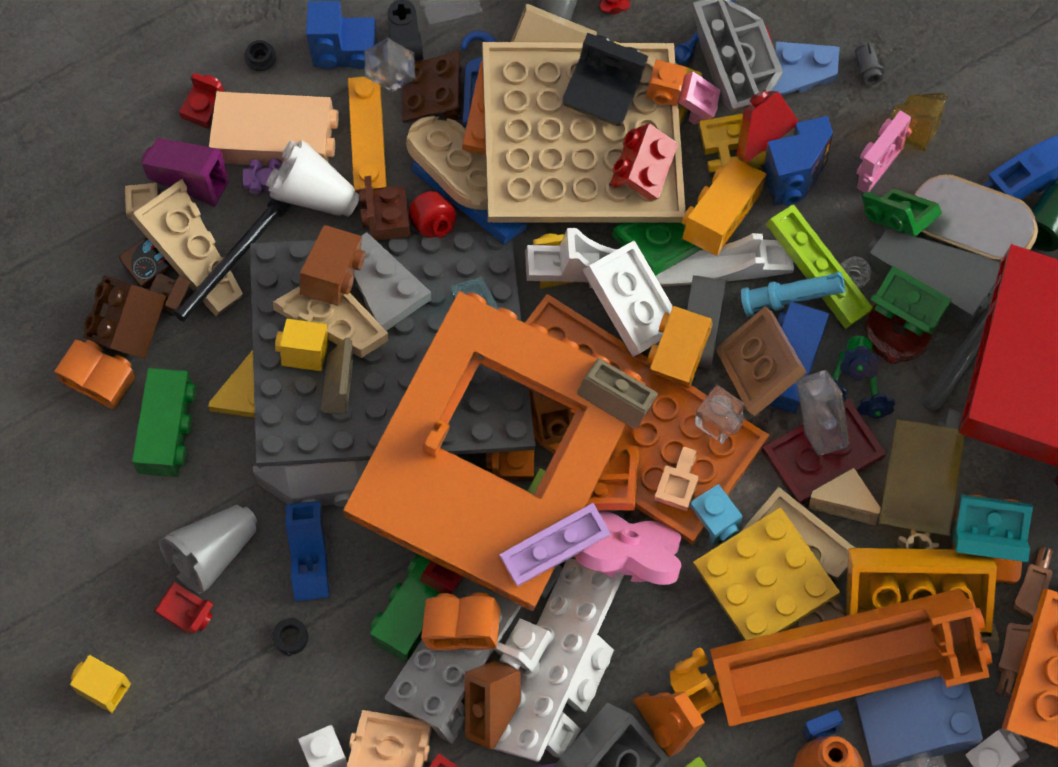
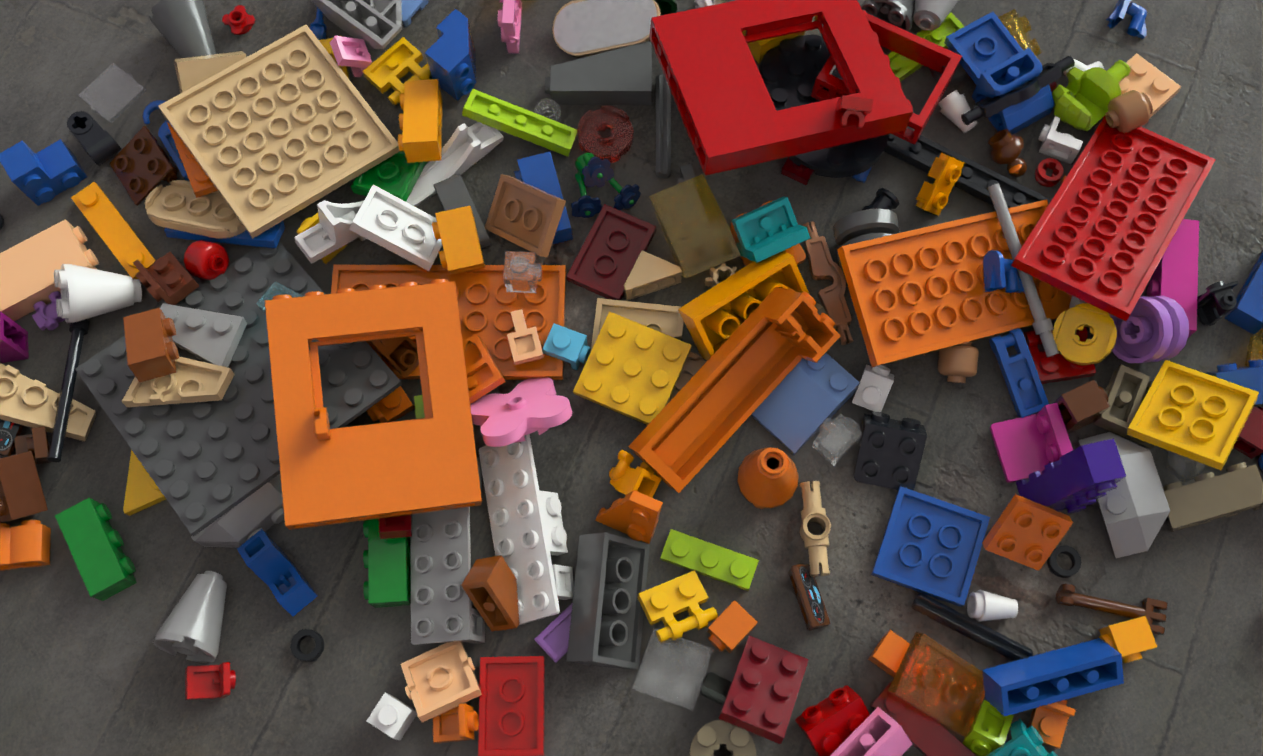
camera: 35 degrees left, 5 degrees up
(302, 344) = (167, 419): yellow brick -> none
(338, 378) = (213, 427): dark tan slope -> none
(389, 65) = (96, 167): clear brick -> none
(461, 622) = (433, 549): orange brick -> none
(524, 646) = (490, 534): white bracket -> none
(554, 545) = (466, 445): lavender plate -> none
(605, 79) = (271, 78): black bracket -> none
(617, 393) = (438, 302): dark tan slope -> none
(644, 161) = (342, 121): bracket -> none
(666, 83) = (320, 55): orange bracket -> none
(763, 121) = (410, 42): red slope -> none
(777, 296) = (504, 161): medium azure pin -> none
(823, 412) = (595, 223): clear brick -> none
(823, 725) = (742, 448): blue tile -> none
(901, 211) = (551, 48): green bracket -> none
(910, 300) = (602, 106): green bracket -> none

